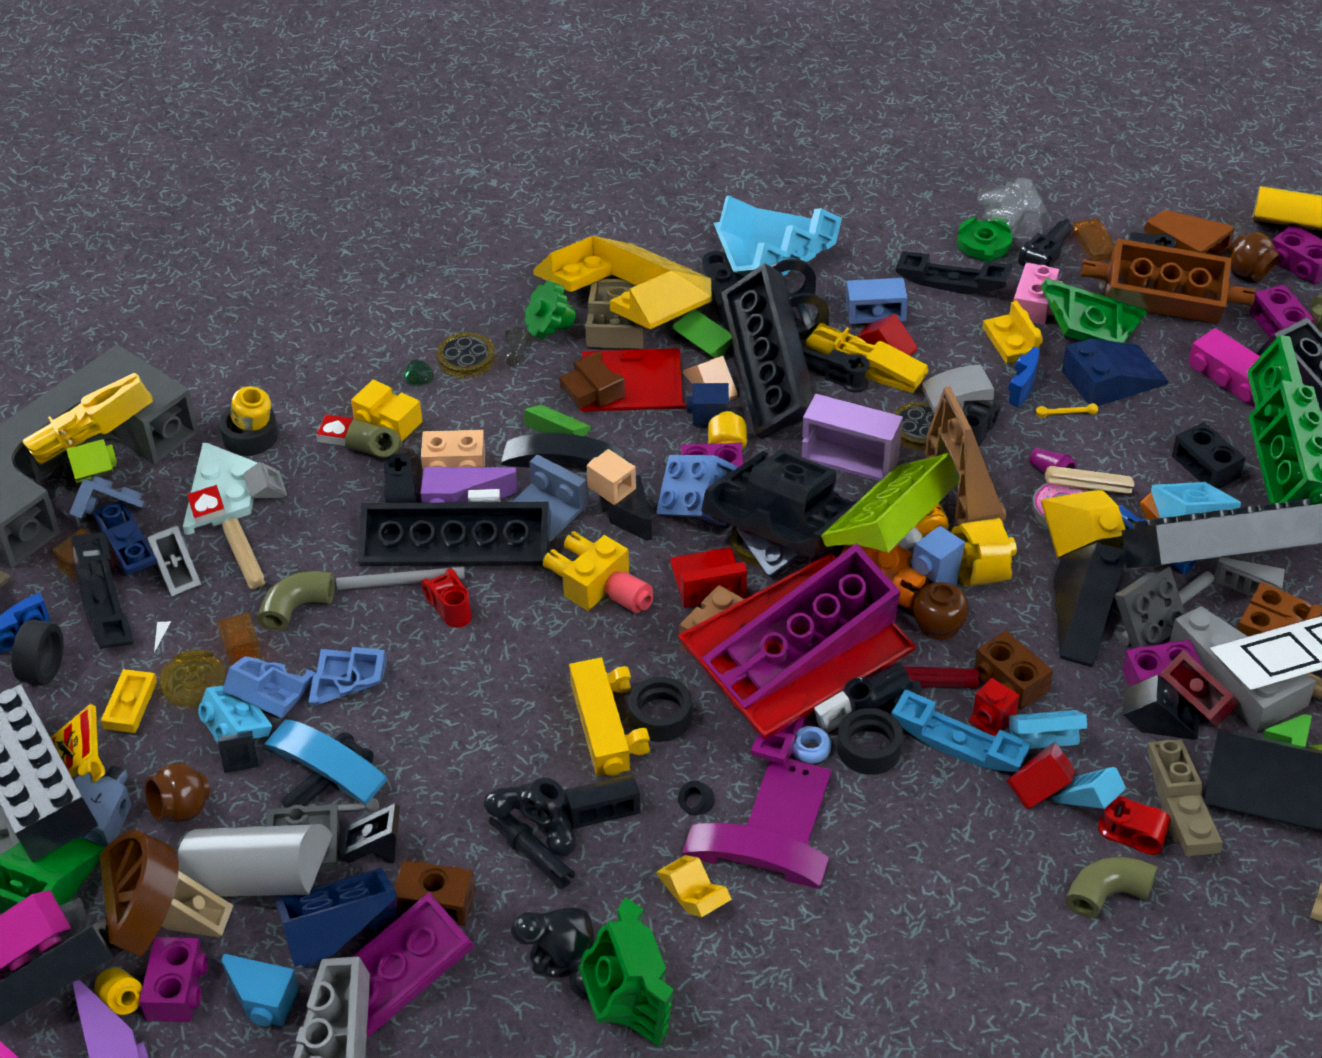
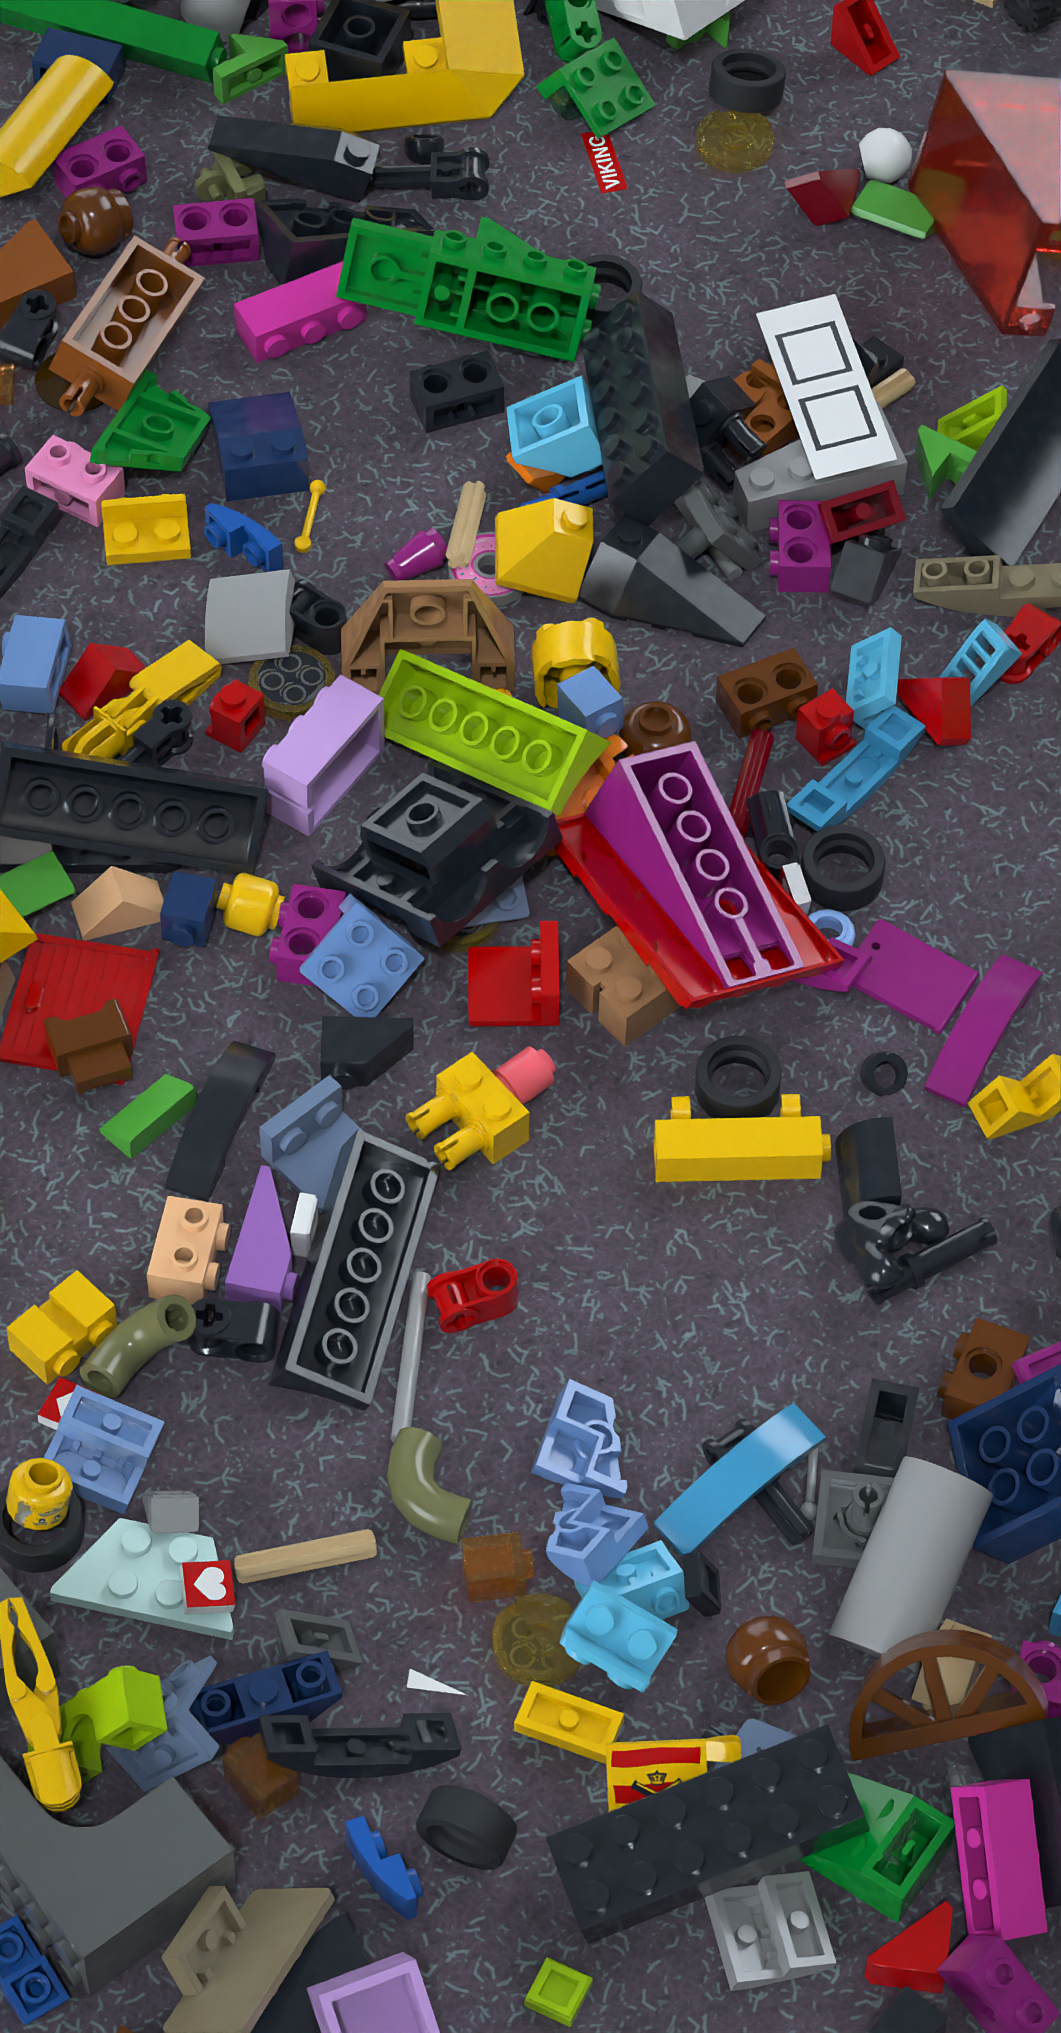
camera: 80 degrees left, 10 degrees up
(181, 706) = (616, 1637): none -> medium azure bracket
(303, 444) = (103, 1447): none -> medium blue slope
(611, 476) = (337, 1041): light nougat brick -> none
(876, 391) = (230, 711): none -> red brick
(1235, 584) = (720, 417): none -> black brick

